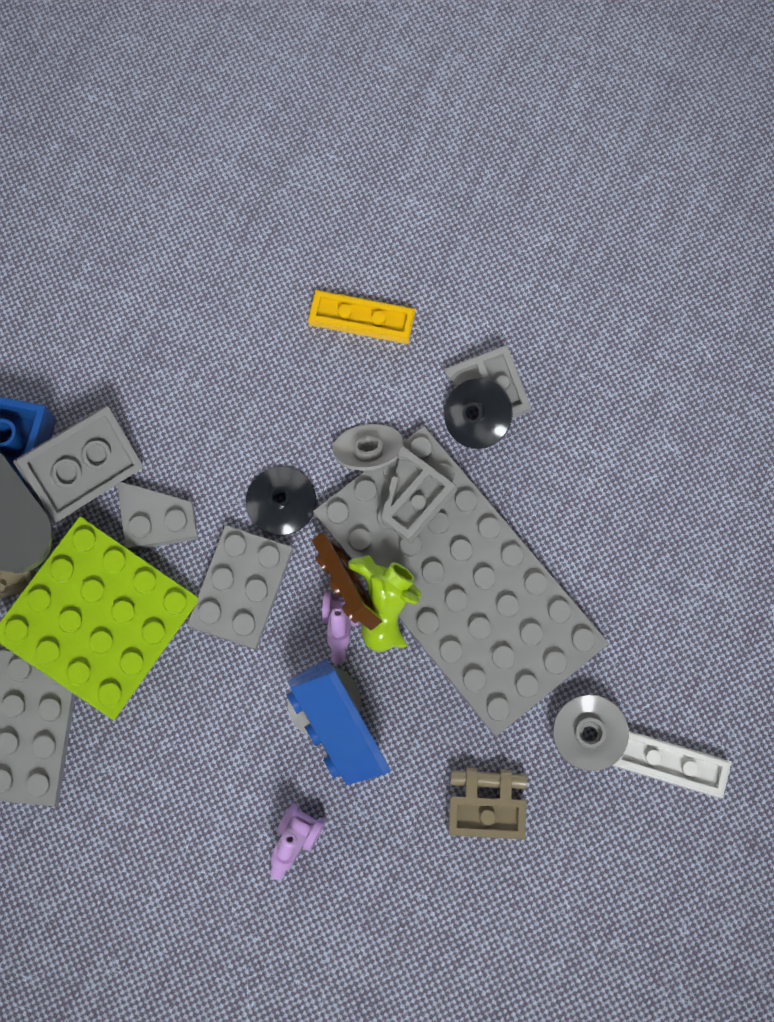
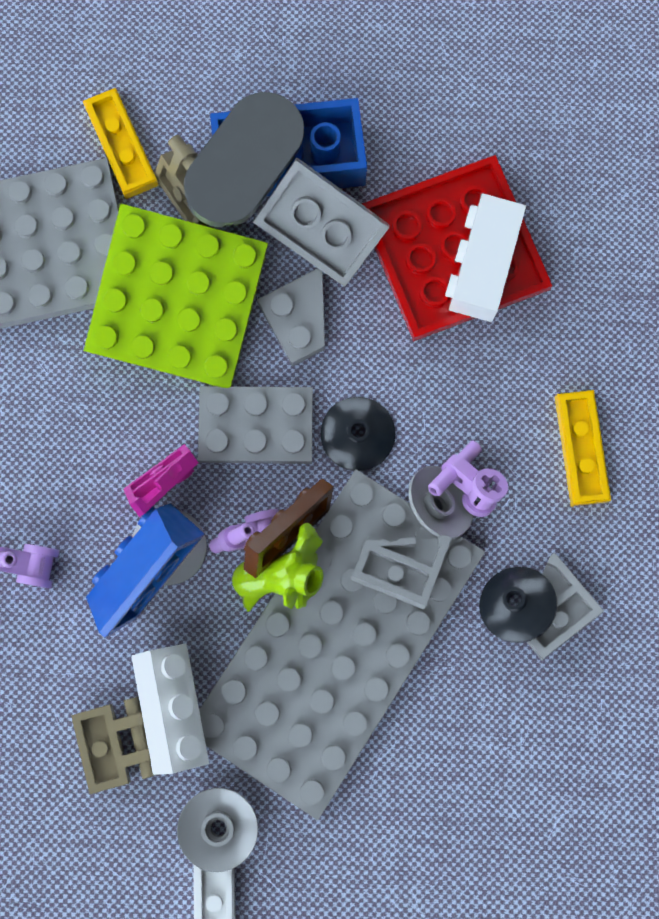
camera: 65 degrees right, 5 degrees up
(146, 359) = (425, 237): none -> red plate
(167, 334) = (485, 257): none -> white brick
(261, 686) = (158, 480): none -> dark pink wing
(360, 415) = (471, 481): none -> lavender piece
(472, 740) = (170, 709): none -> white brick

